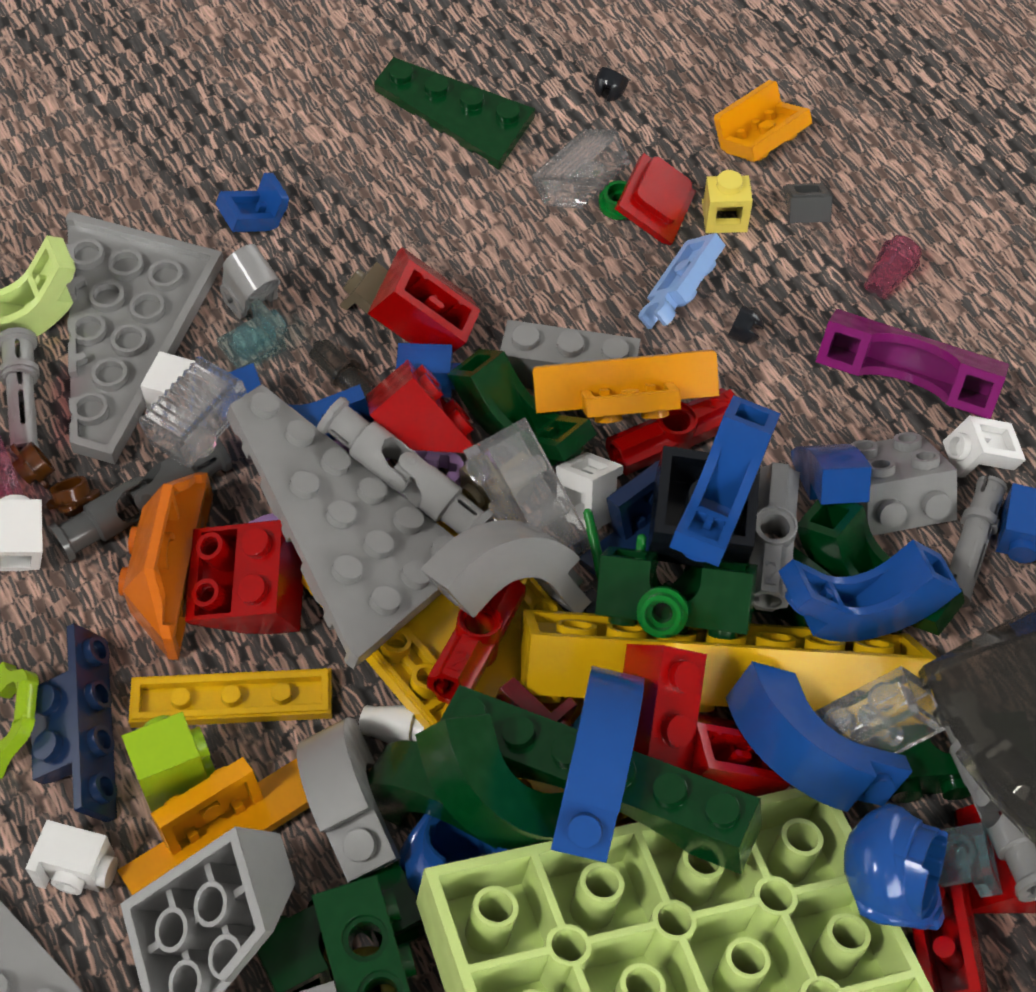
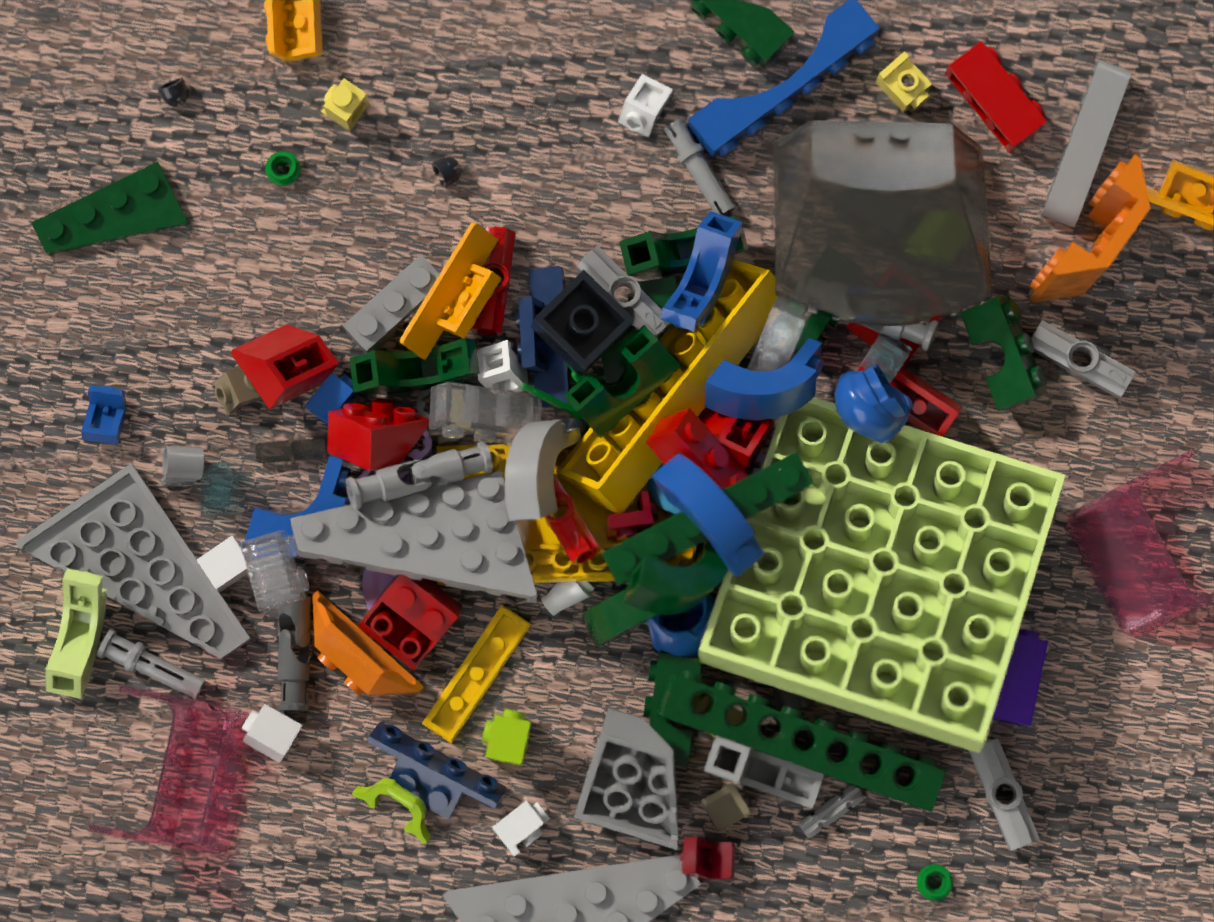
camera: 55 degrees left, 25 degrees up
(32, 464) = (219, 691): reddish brown plate -> none
(71, 495) = (262, 681): reddish brown plate -> none
(213, 808) = (559, 734): light orange bracket -> none
(341, 799) = (597, 657): light grey arch -> none
(581, 168) = (243, 176): clear brick -> none
(651, 622) = (638, 411): green plate -> none
(656, 198) = (303, 145): red piece -> none
(681, 279) = (381, 182): light blue plate -> none
(725, 481) = (595, 314): blue arch -> none
(808, 202) = (377, 44): dark grey slope -> none
(833, 473) = (603, 220): blue slope -> none
(894, 264) = (474, 40): clear pink cone -> none
(908, 484) = (627, 175): light grey bracket -> none
(951, 373) = (593, 76): magenta arch -> none

